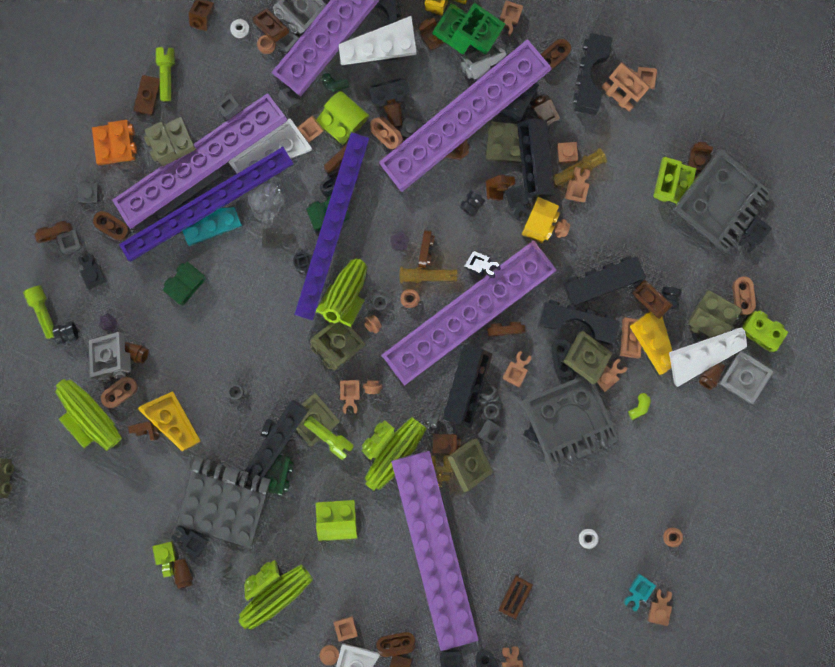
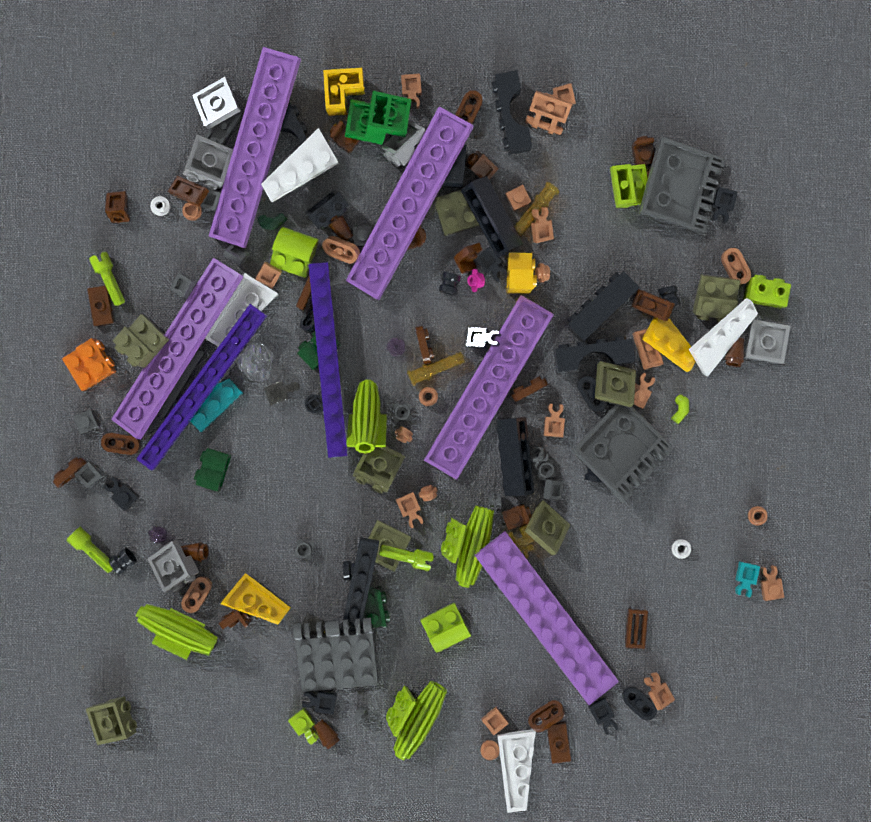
camera: 25 degrees left, 5 degrees up
(497, 210) = (476, 280): none -> dark pink plate

